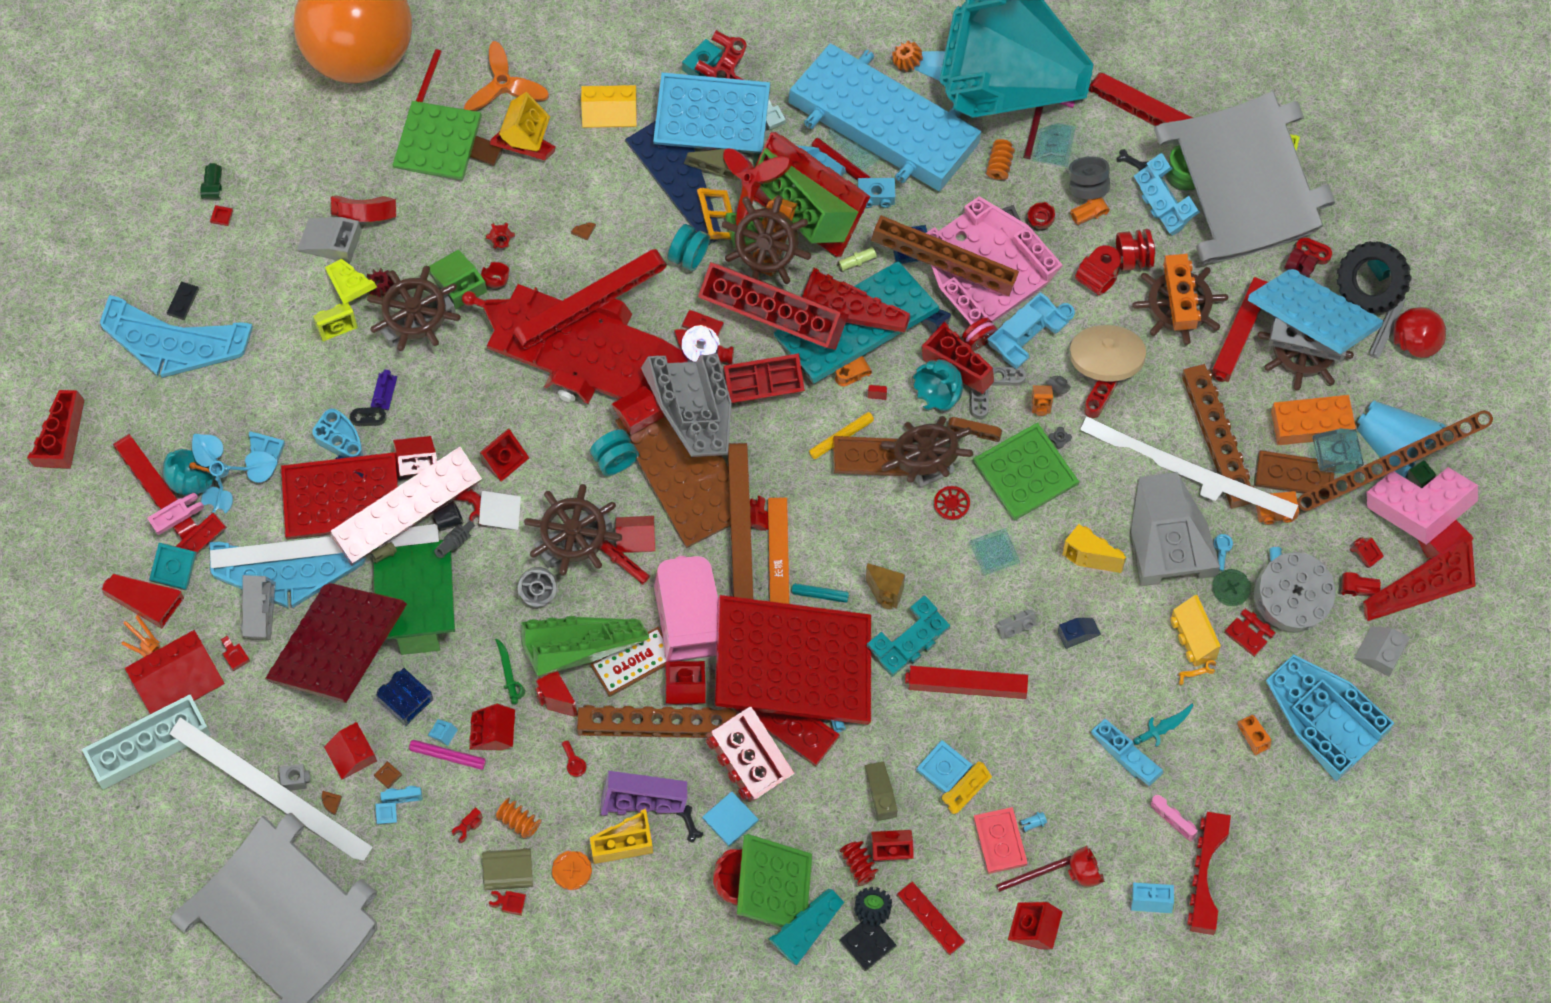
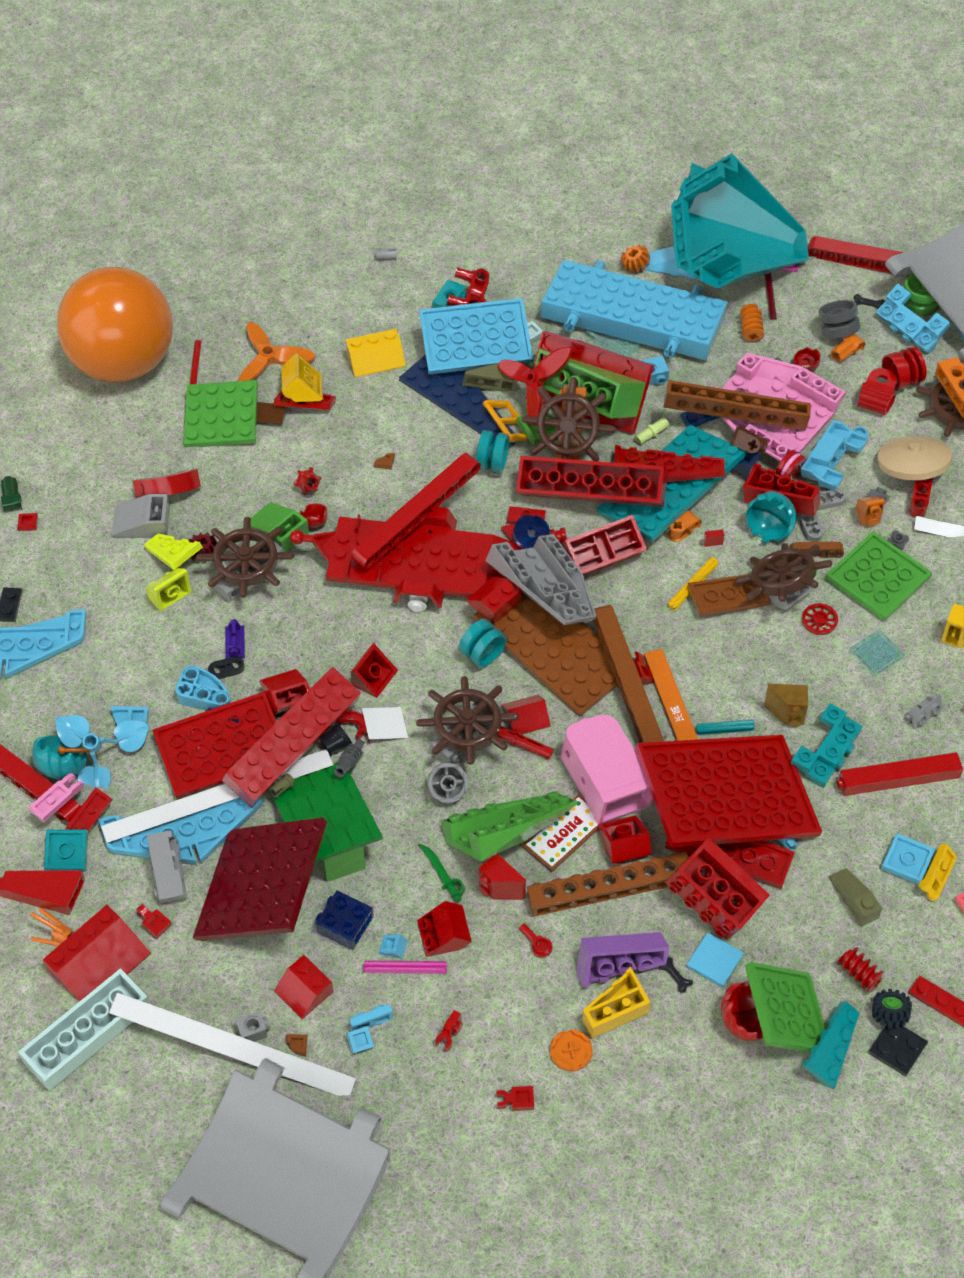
camera: 15 degrees left, 10 degrees down
(387, 775) = (349, 1002): dark orange tile -> none
(507, 869) = (505, 1065): olive piece -> none
(517, 819) = (500, 1012): orange piece -> none
(892, 845) = (888, 943): red brick -> none
(944, 297) = (746, 440): none -> reddish brown piece
(1054, 144) = (795, 301): clear light blue slope -> none

